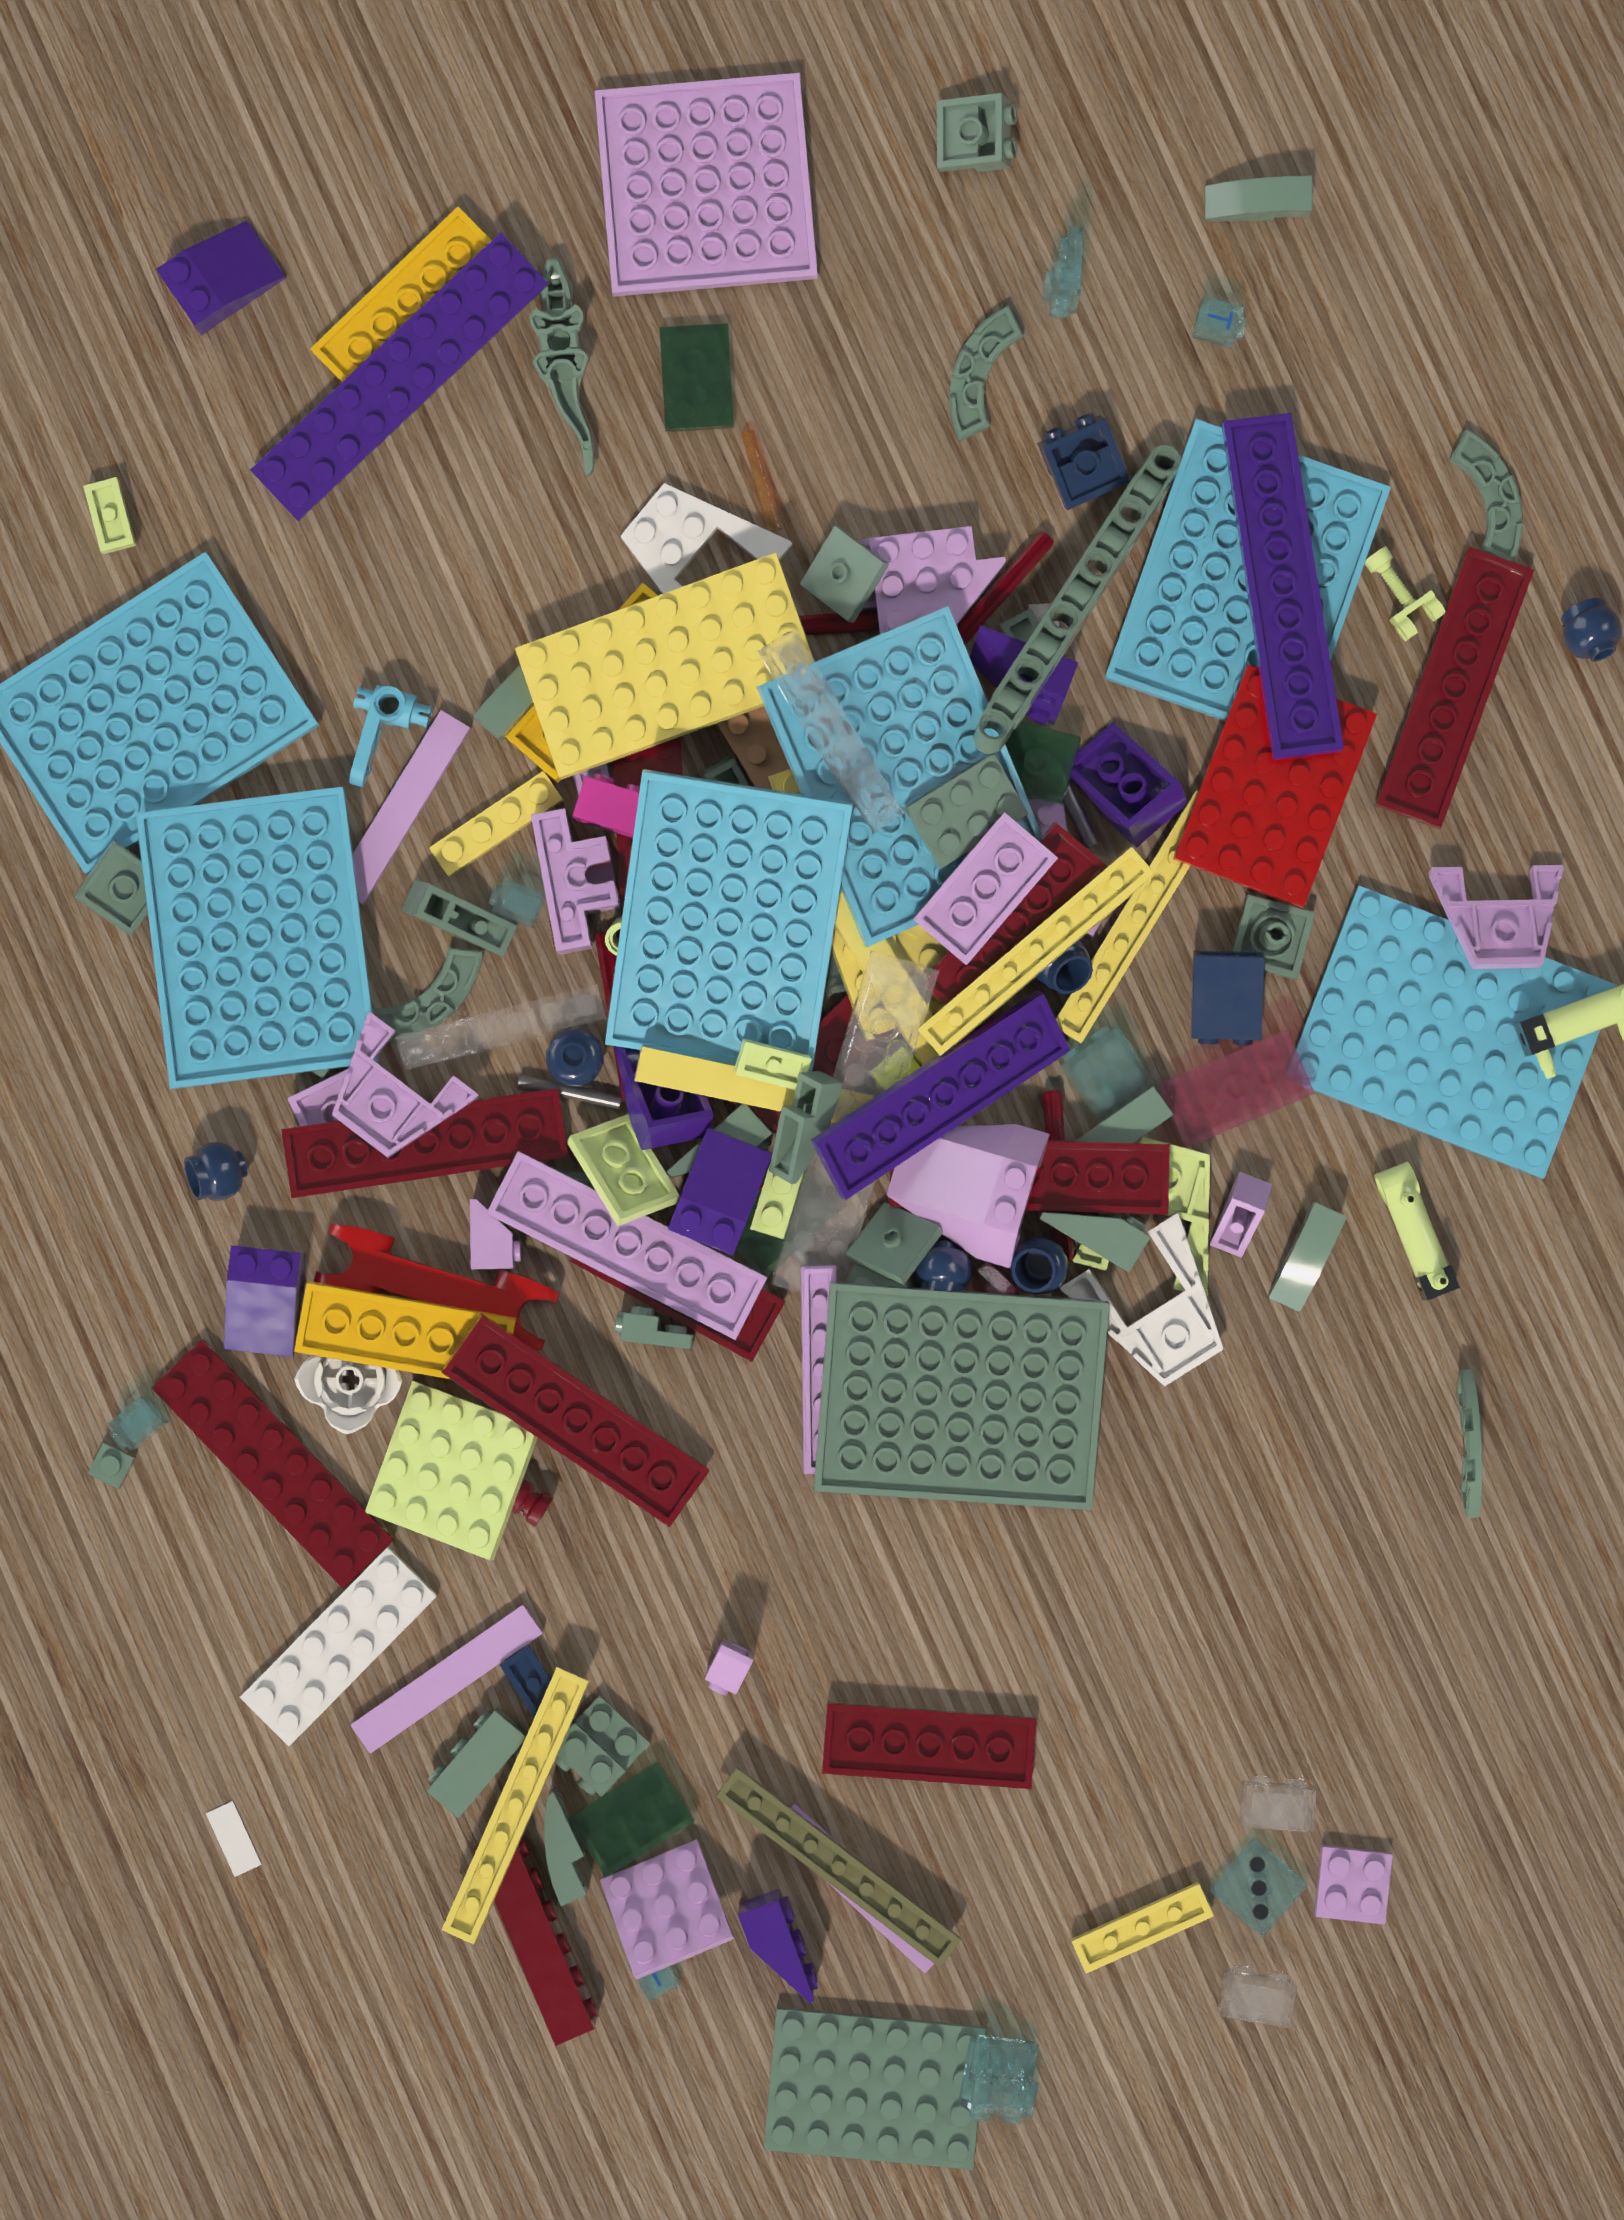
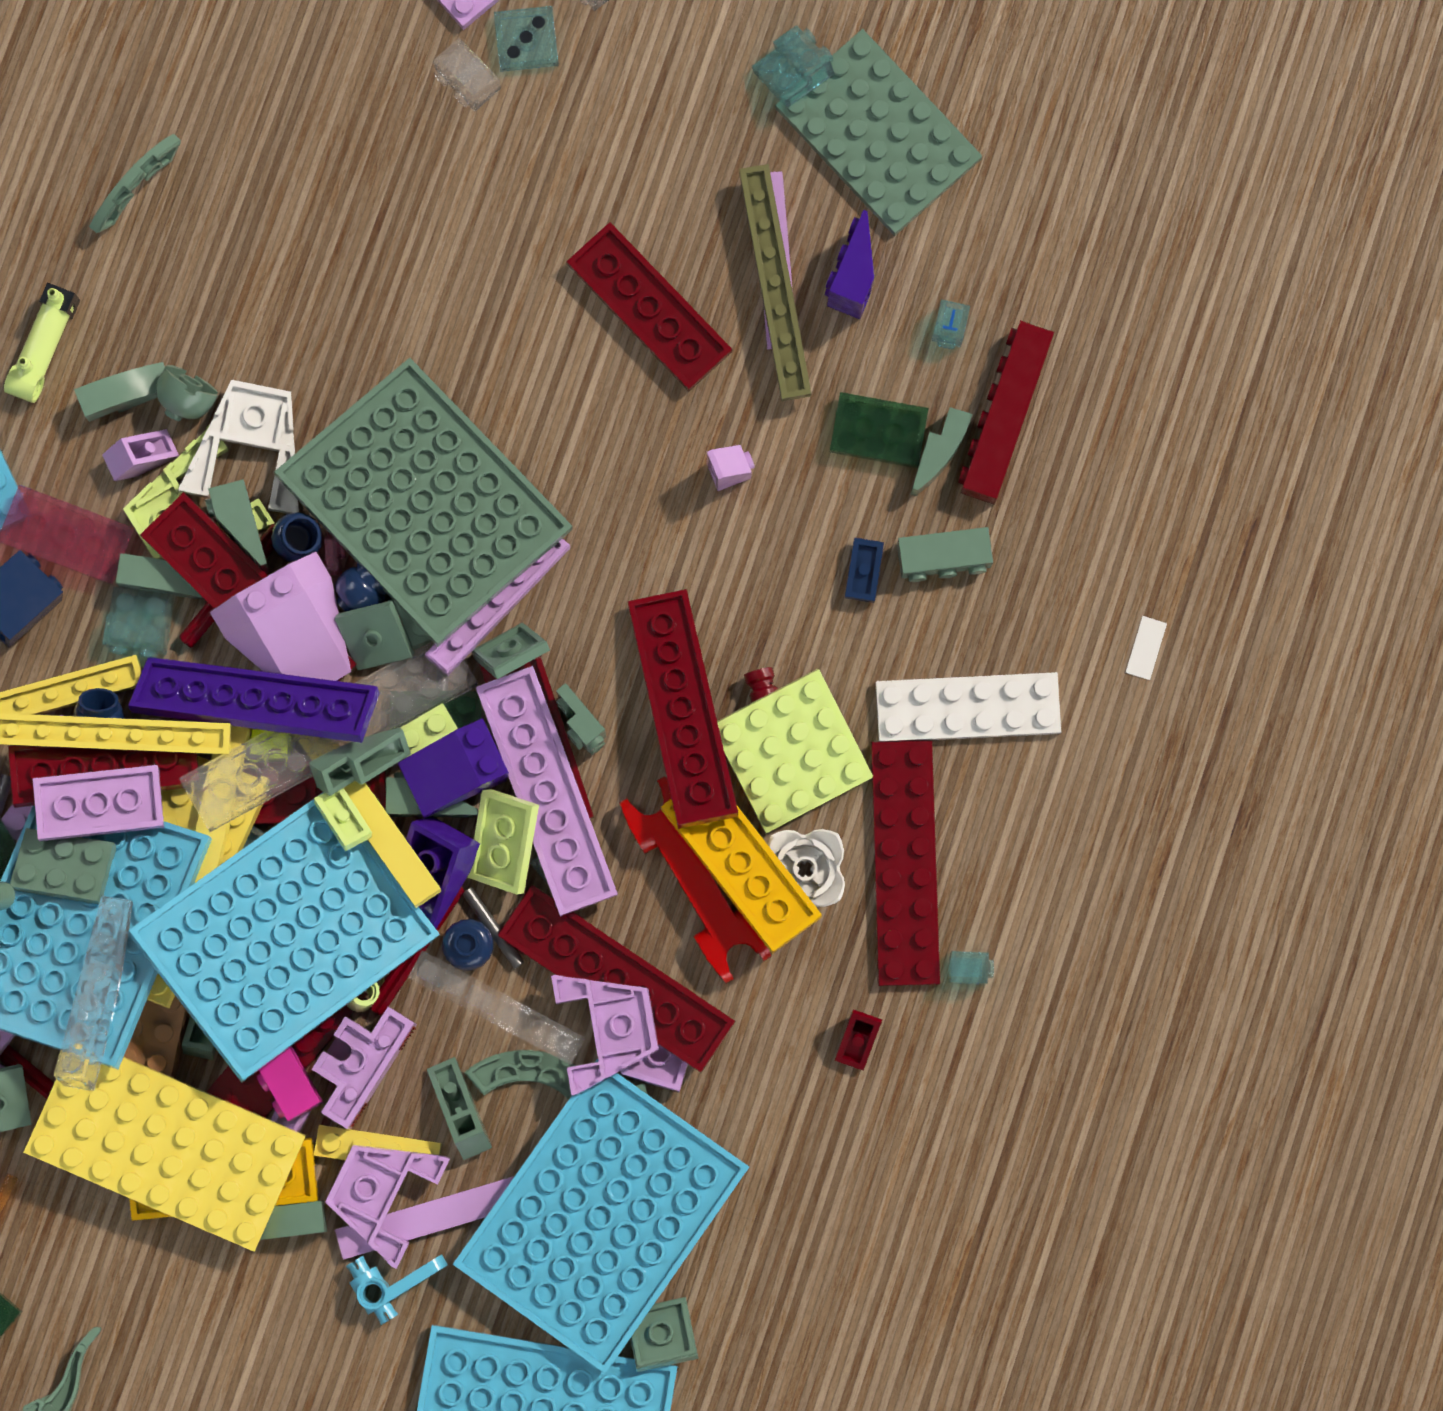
camera: 140 degrees left, 5 degrees down
(111, 1465) = (1011, 957): sand green plate -> none
(176, 1277) = (858, 1039): none -> dark red slope
(215, 1171) = (770, 1085): dark blue piece -> none
(263, 1300) = (815, 973): slope -> none
(446, 1678) = (917, 624): lavender tile -> none
(470, 785) = (369, 1186): none -> lavender wing
(491, 1240) = (632, 876): lavender slope -> none
(515, 1805) = (942, 500): light yellow plate -> none
(517, 903) = (412, 1082): clear light blue brick -> none
(600, 1747) = (858, 493): sand green plate -> none
(666, 1909) = (907, 353): lavender plate -> none
(678, 526) = (73, 1238): white wing -> none
(767, 1335) = (510, 650): none -> sand green plate
(1142, 1927) = (621, 78): light yellow plate -> none
(1250, 1299) = (184, 395): none -> sand green cylinder

